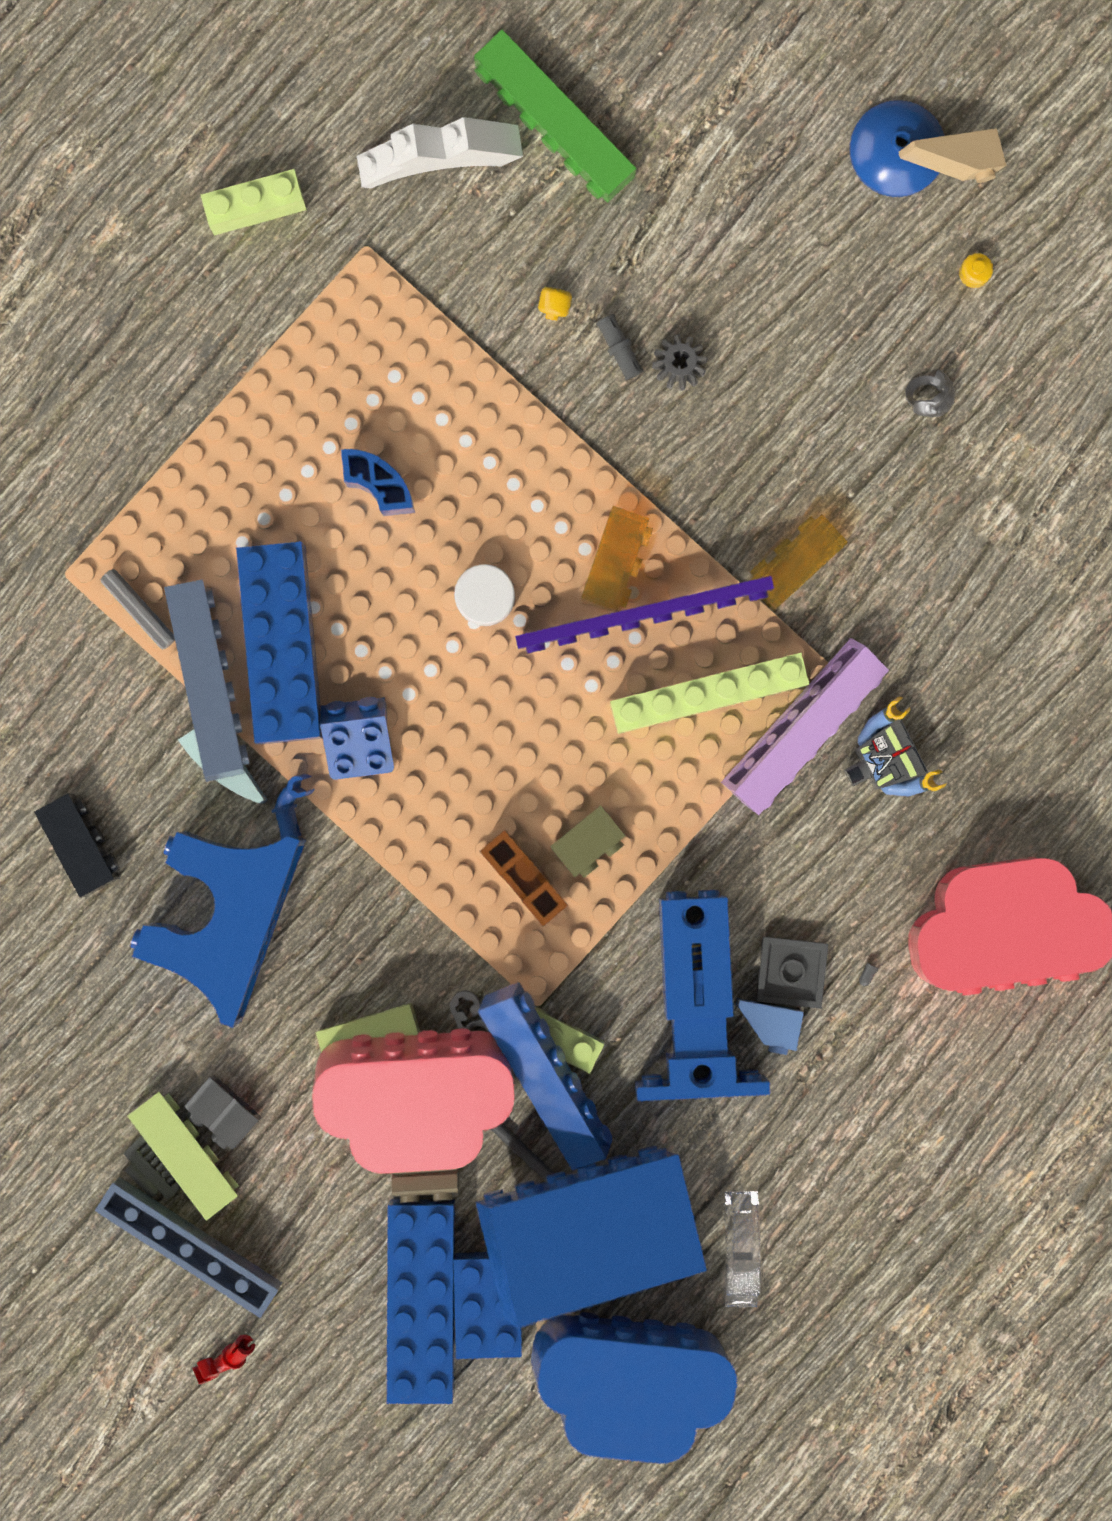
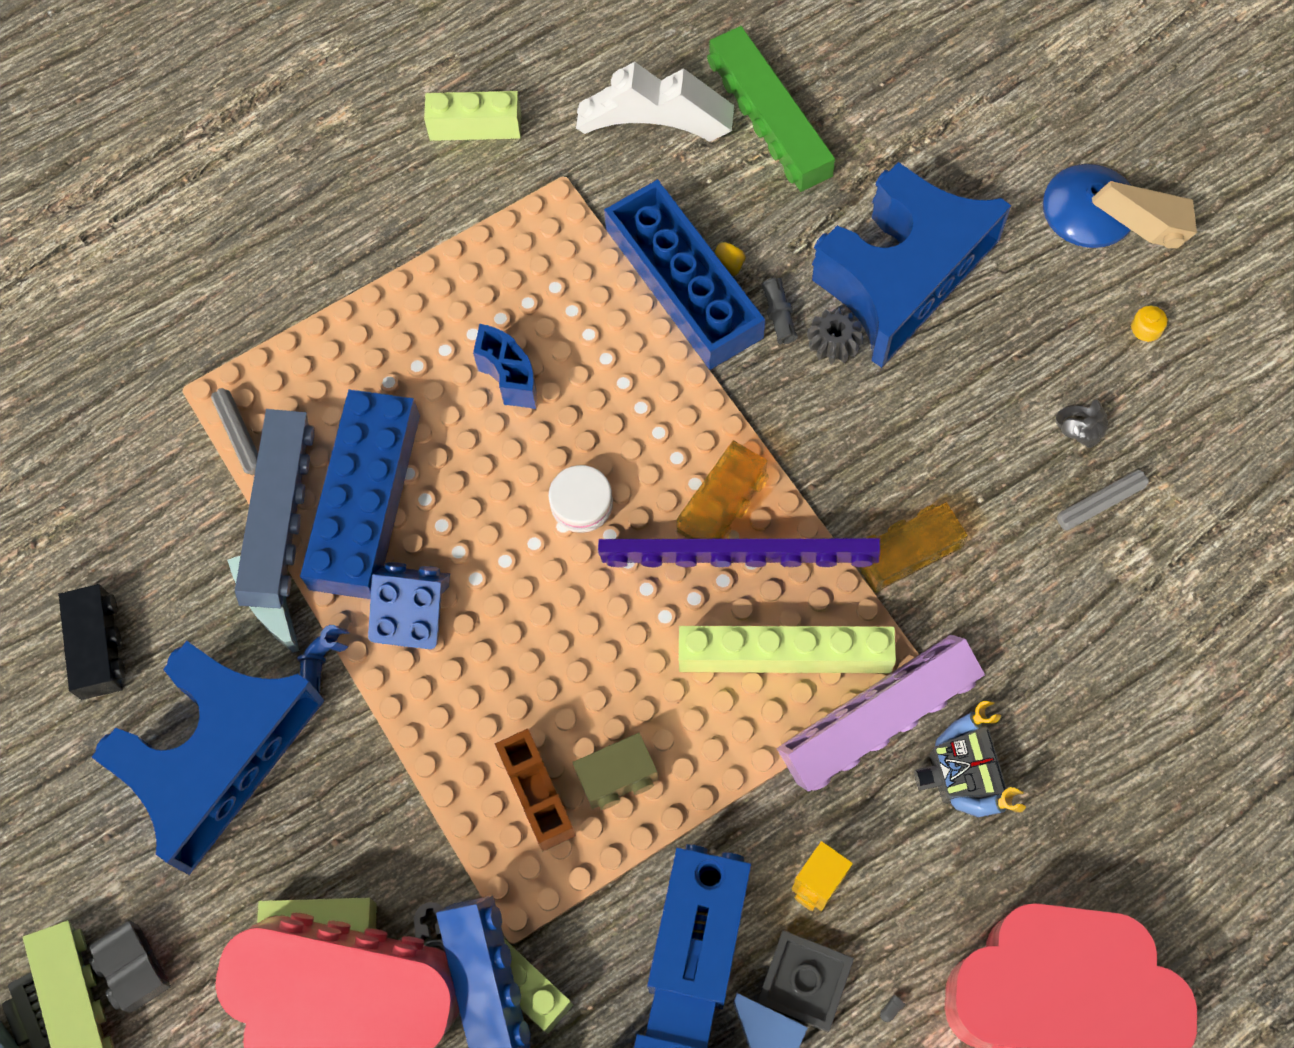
camera: 15 degrees right, 20 degrees down
(517, 333) = (684, 274): none -> blue brick
(759, 242) = (904, 284): none -> blue piece
(786, 888) = (820, 877): none -> yellow brick
(963, 468) = (1102, 500): none -> light grey axle

